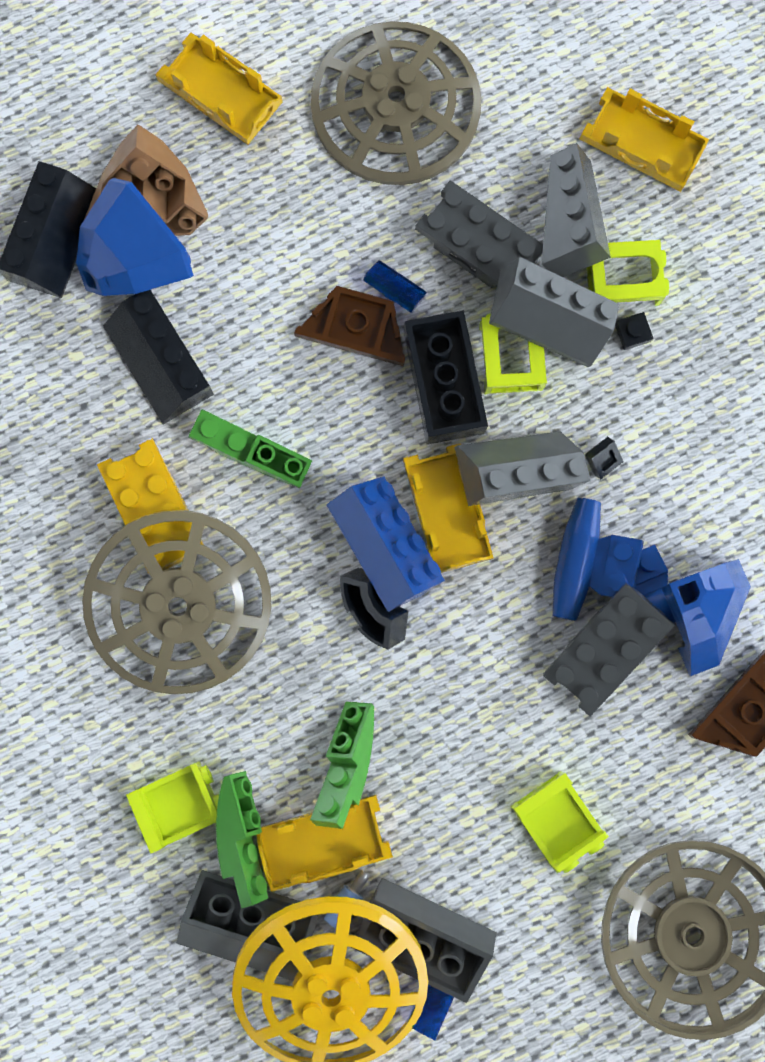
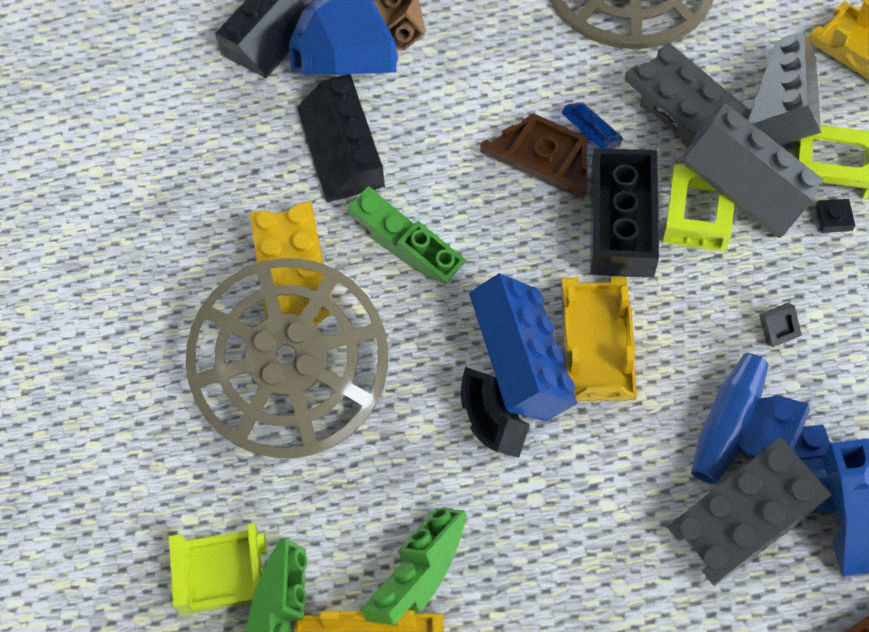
camera: 25 degrees right, 20 degrees down
(520, 467) = (686, 311): dark grey slope -> none

